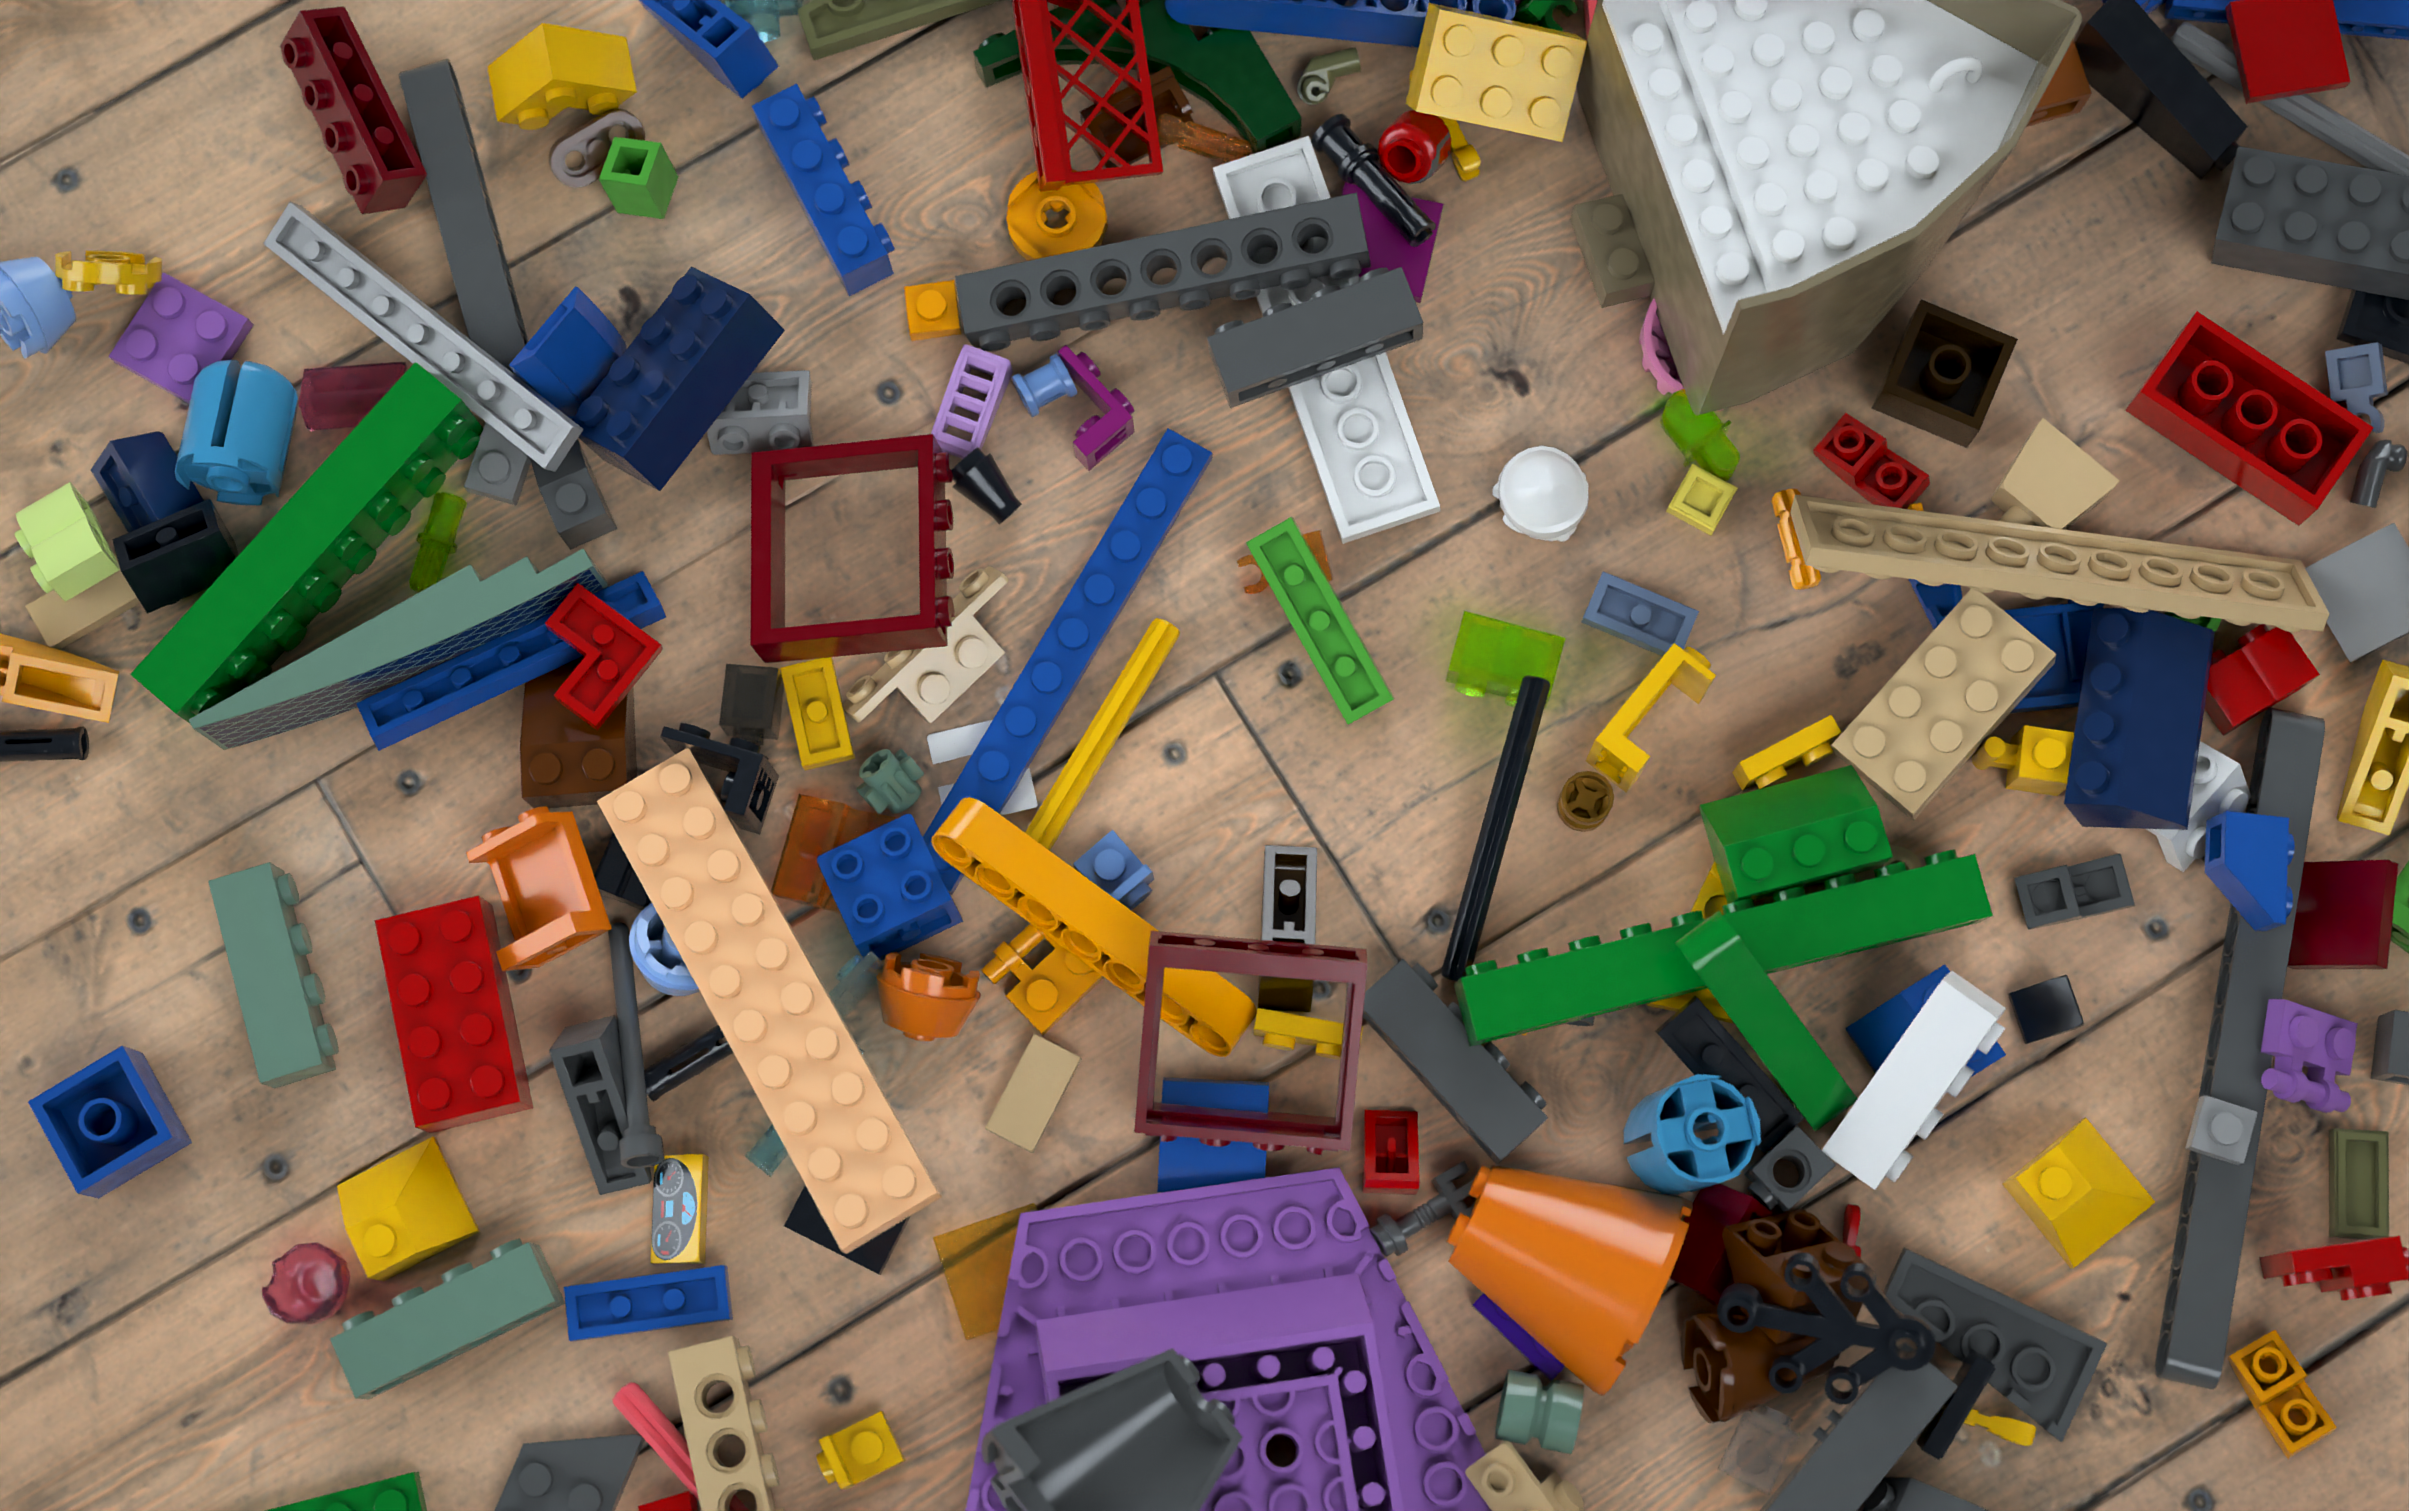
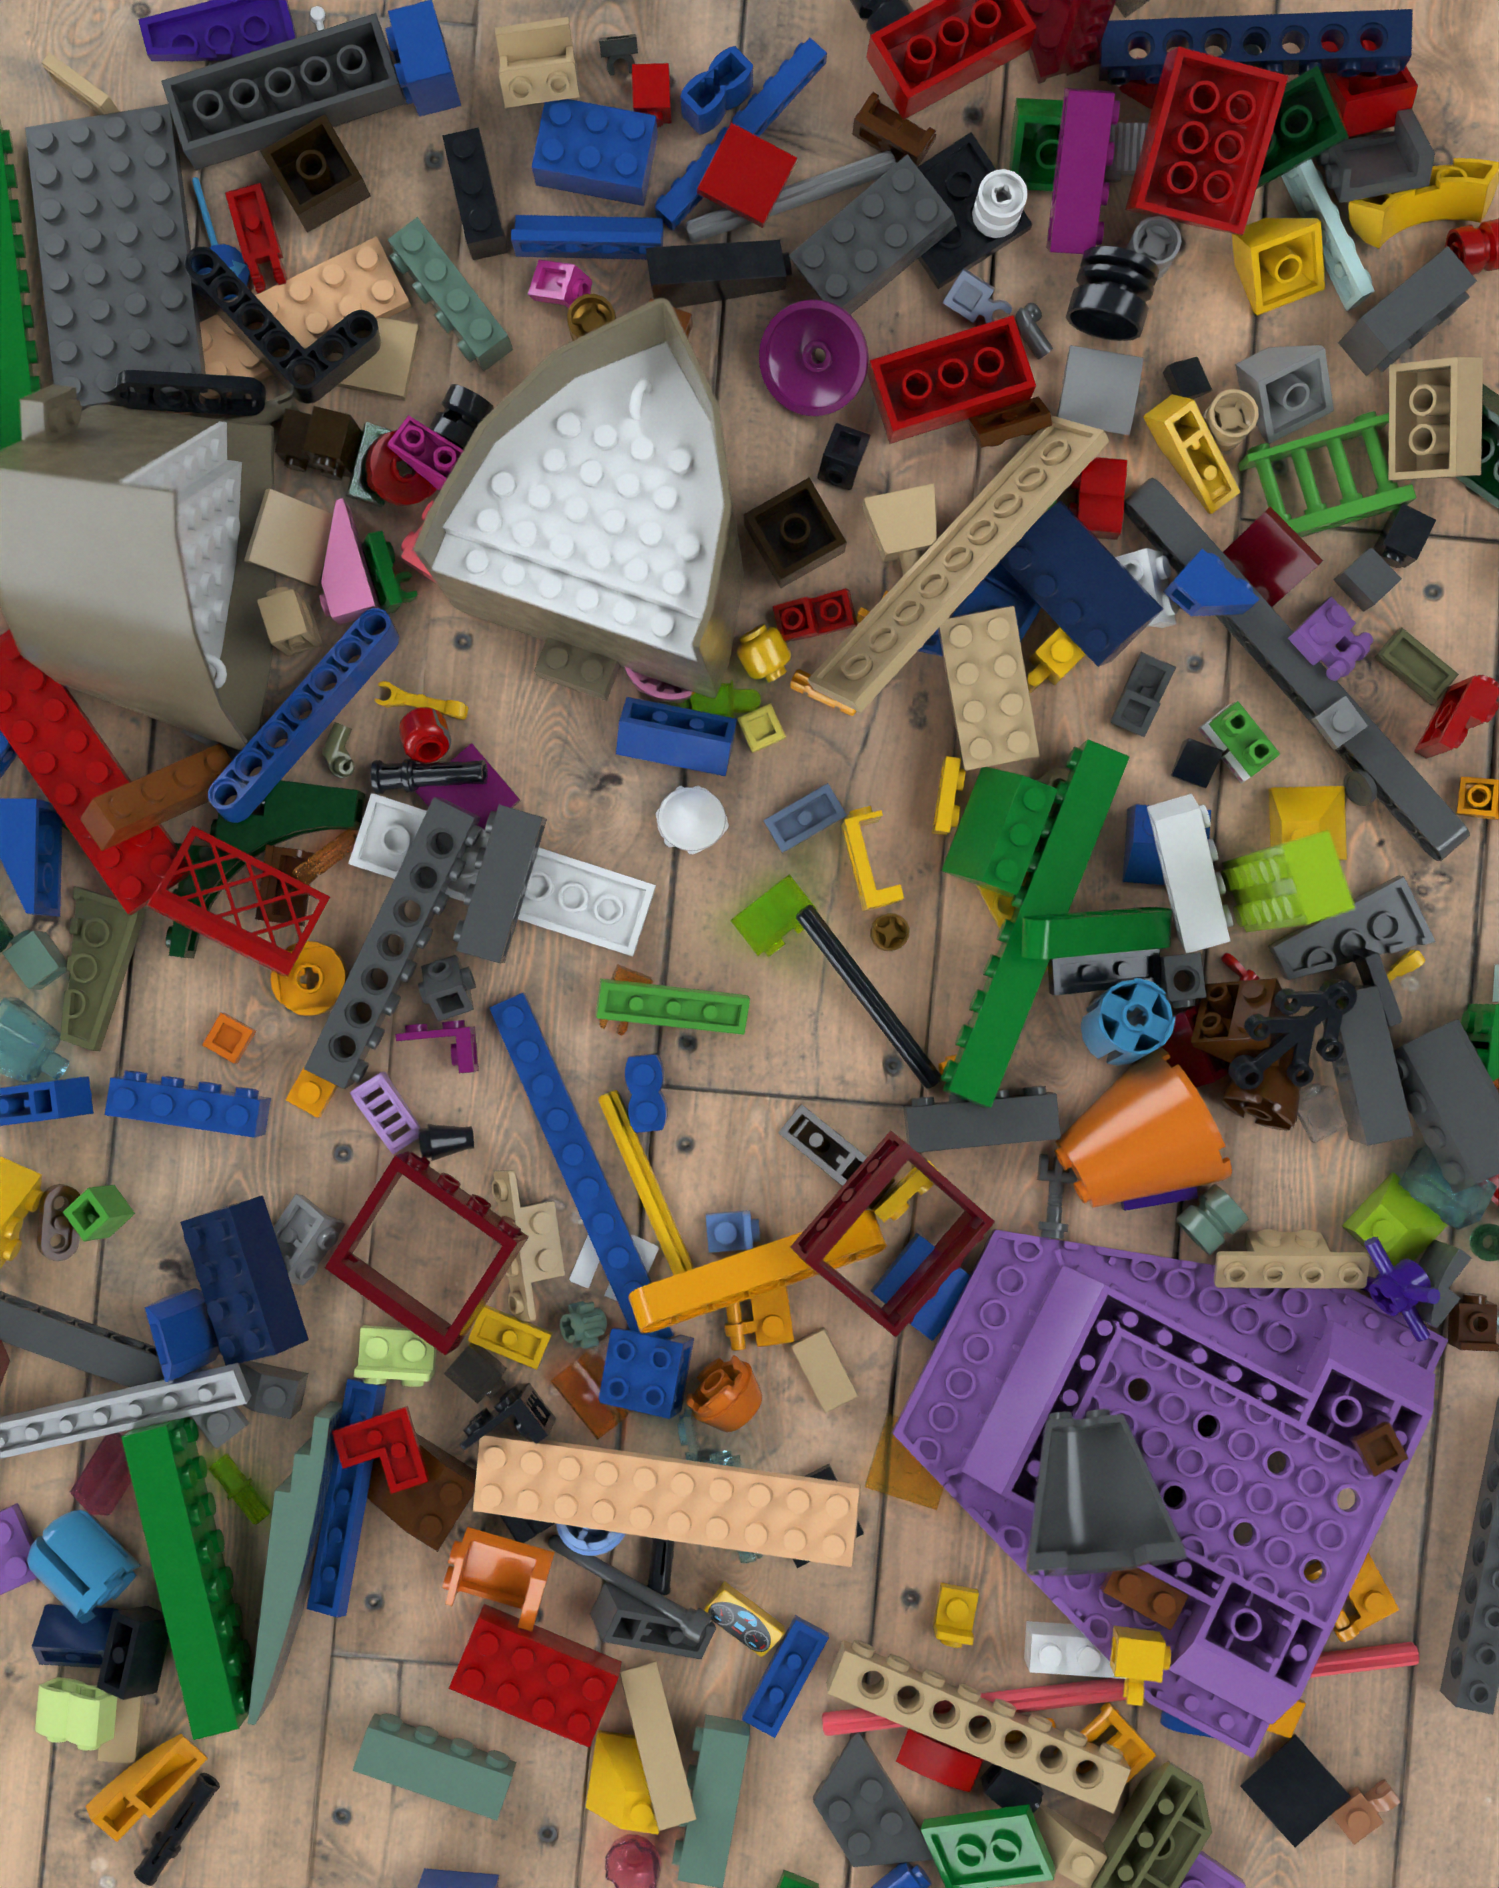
camera: 60 degrees left, 10 degrees up
(468, 1207) = (657, 1746): none -> tan tile
(708, 603) = (394, 1355): none -> yellowish green bracket
(928, 181) = (229, 1038): none -> orange plate
(1044, 385) = (408, 1061): medium blue bush -> none
(1157, 364) = (447, 987): none -> dark grey brick
(1214, 654) = (647, 1104): none -> blue brick
(1391, 1152) = (1008, 1194): red slope -> none
(1496, 72) = (417, 655): yellow brick -> none
(1621, 408) = (675, 736): none -> blue brick
(1786, 438) = (764, 653): none -> yellow head
(1990, 1174) = (1288, 884): none -> lime brick
(2069, 368) = (843, 456): none -> black bracket
(2115, 1030) = (1246, 742): none -> bright green hips
(2134, 231) = (790, 361): none -> magenta dish
(2168, 1218) = (1360, 787): none -> dark grey piece
(2268, 528) = (1010, 422): none -> reddish brown plate

